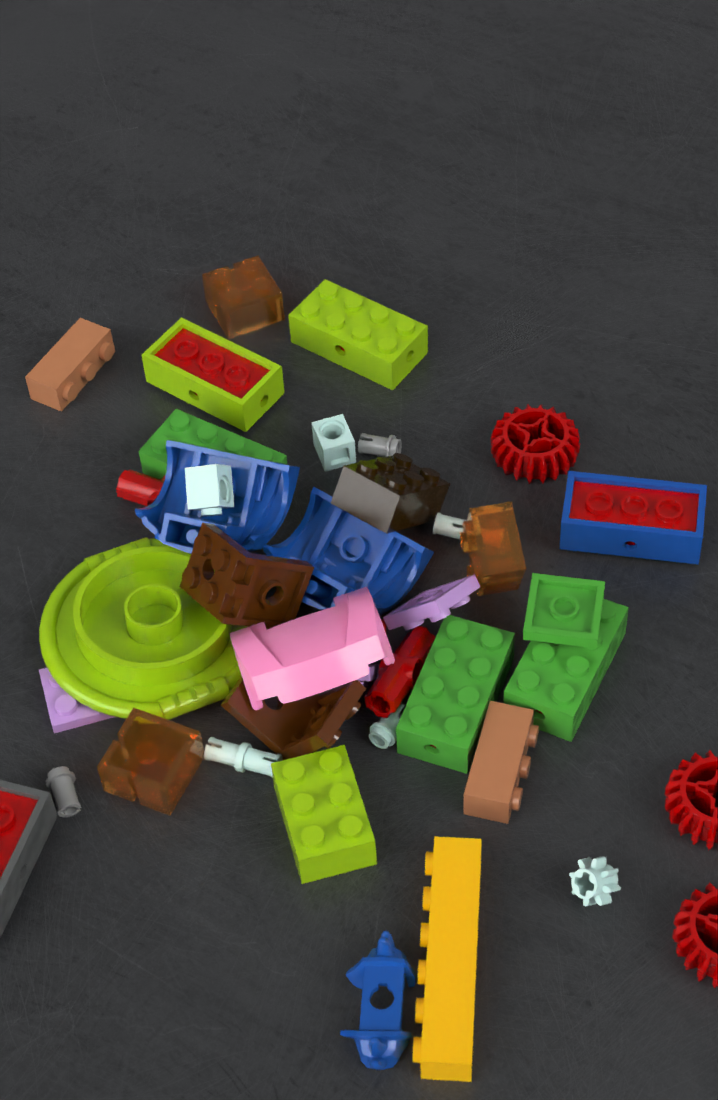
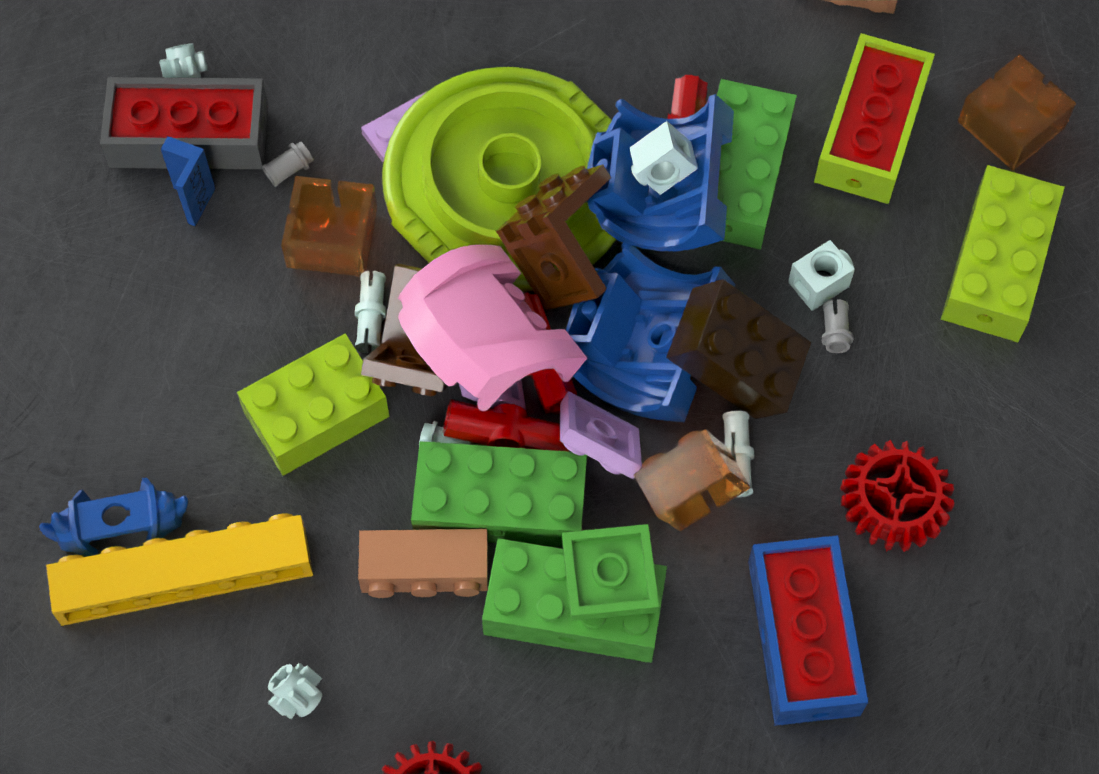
camera: 70 degrees right, 15 degrees up
(48, 860) = (189, 176): none -> blue panel

